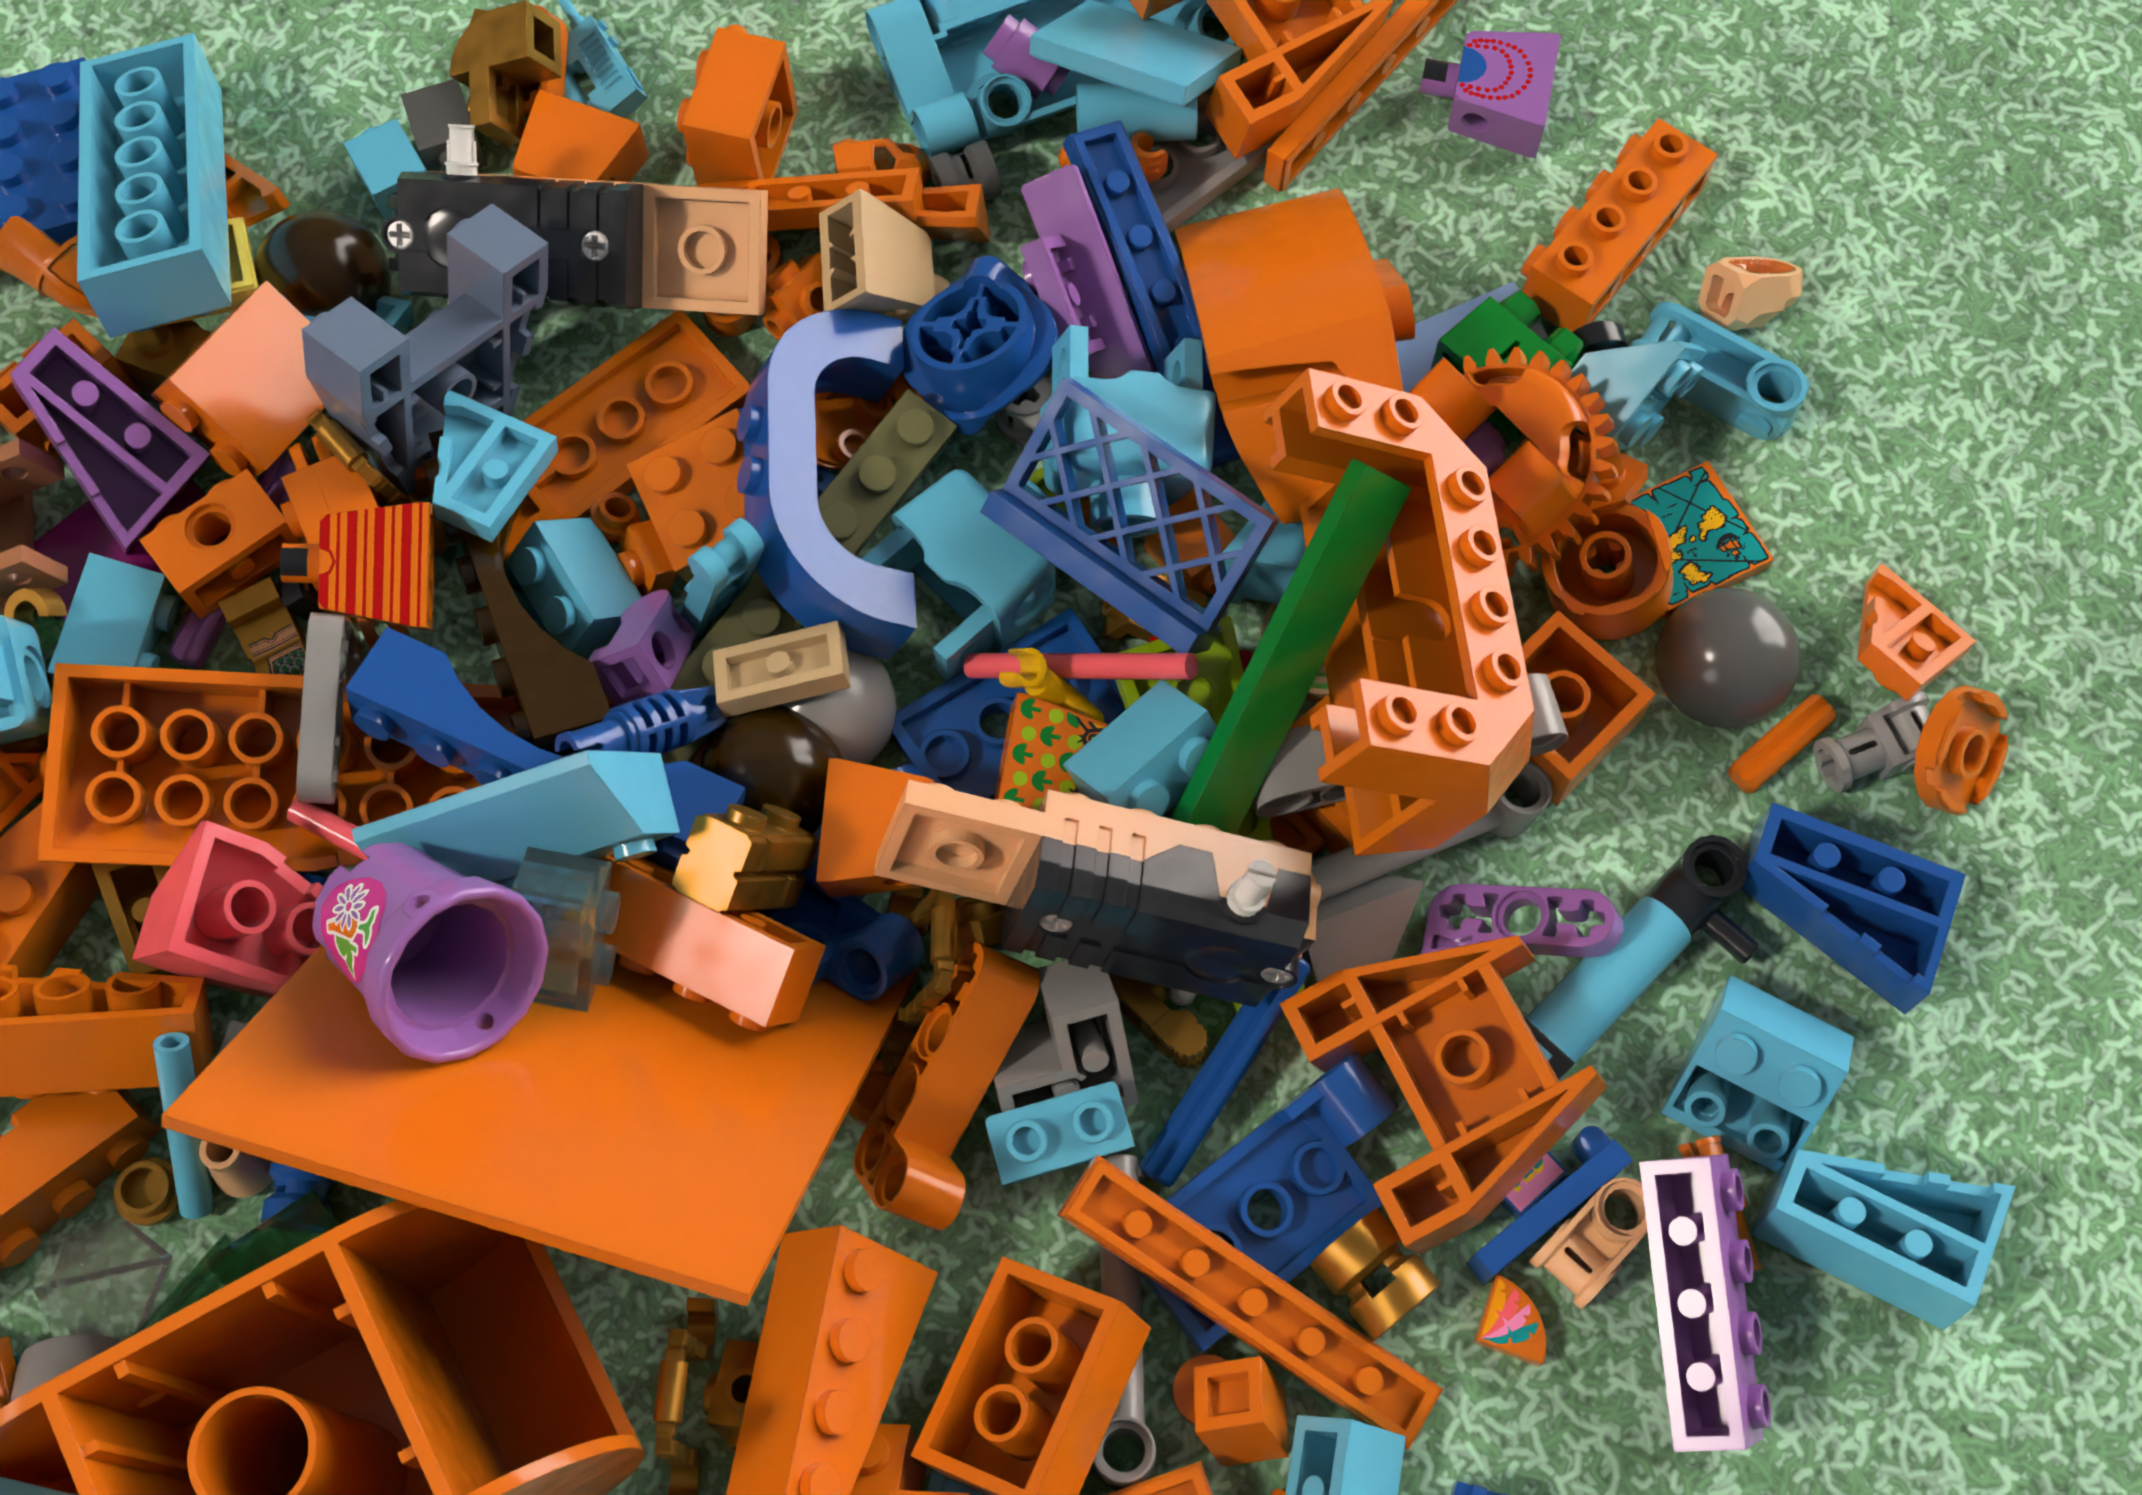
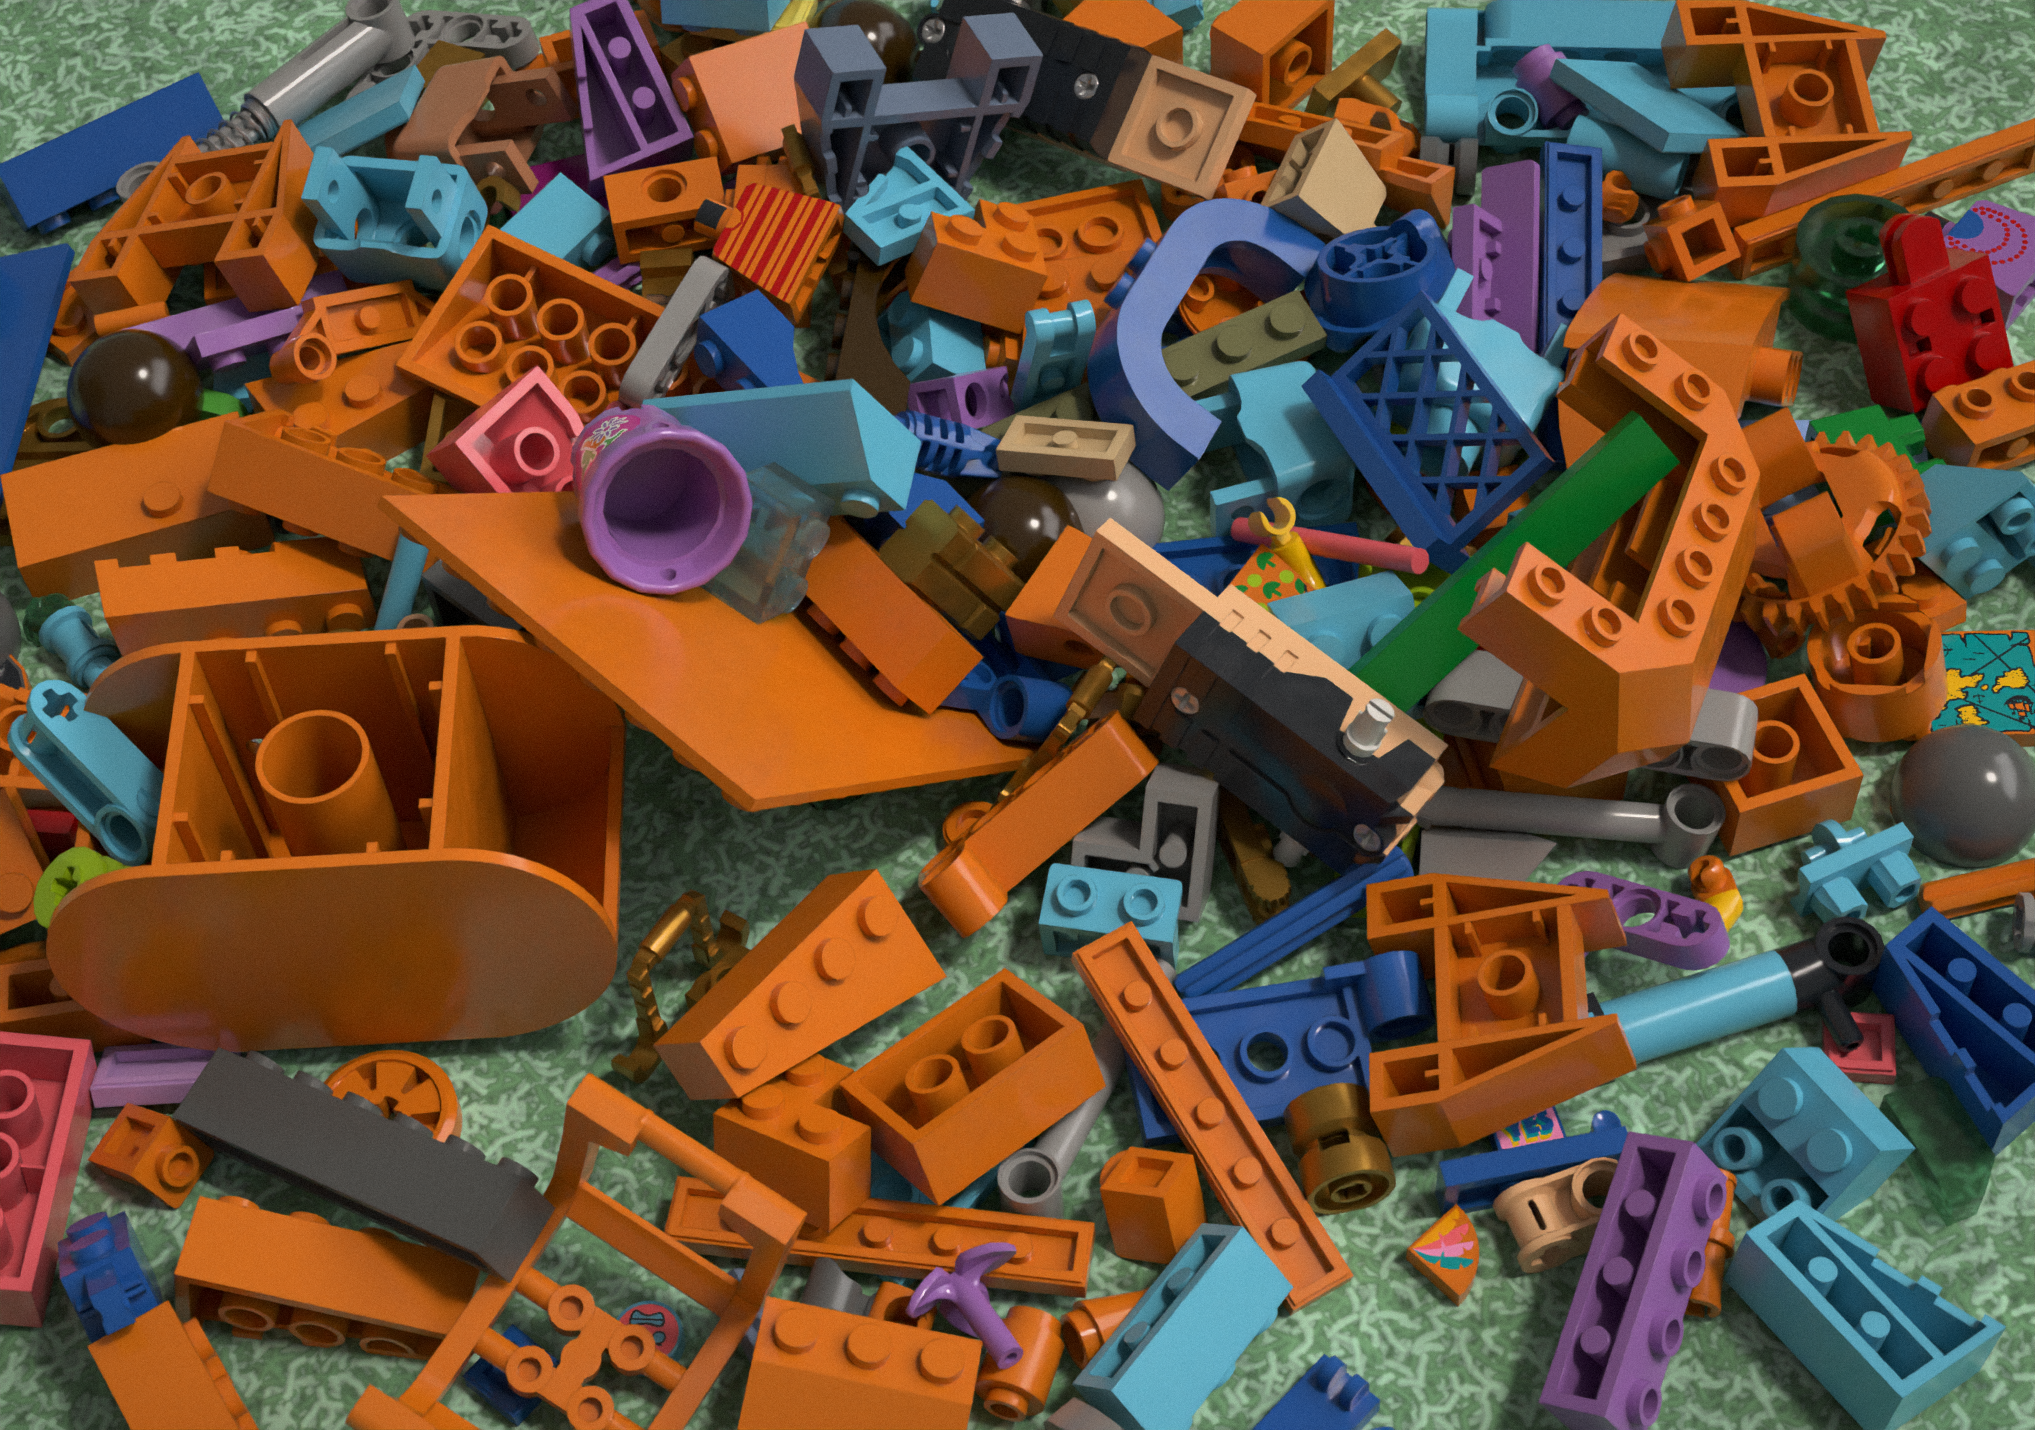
camera: 30 degrees right, 15 degrees down
(592, 495) = (979, 266): none -> orange brick
(835, 117) = (1359, 78): none -> pearl gold tile
(1238, 182) = (1689, 238): none -> orange brick
(1391, 145) = (1832, 253): none -> clear green wheel
(1488, 186) = (1928, 317): none -> red brick
(1565, 854) = (1717, 887): none -> orange arm
(1695, 762) = (1851, 862): none -> medium azure hips
(1773, 950) = (1875, 1057): none -> coral tile
(1883, 1024) = (1950, 1151): none -> clear green piece

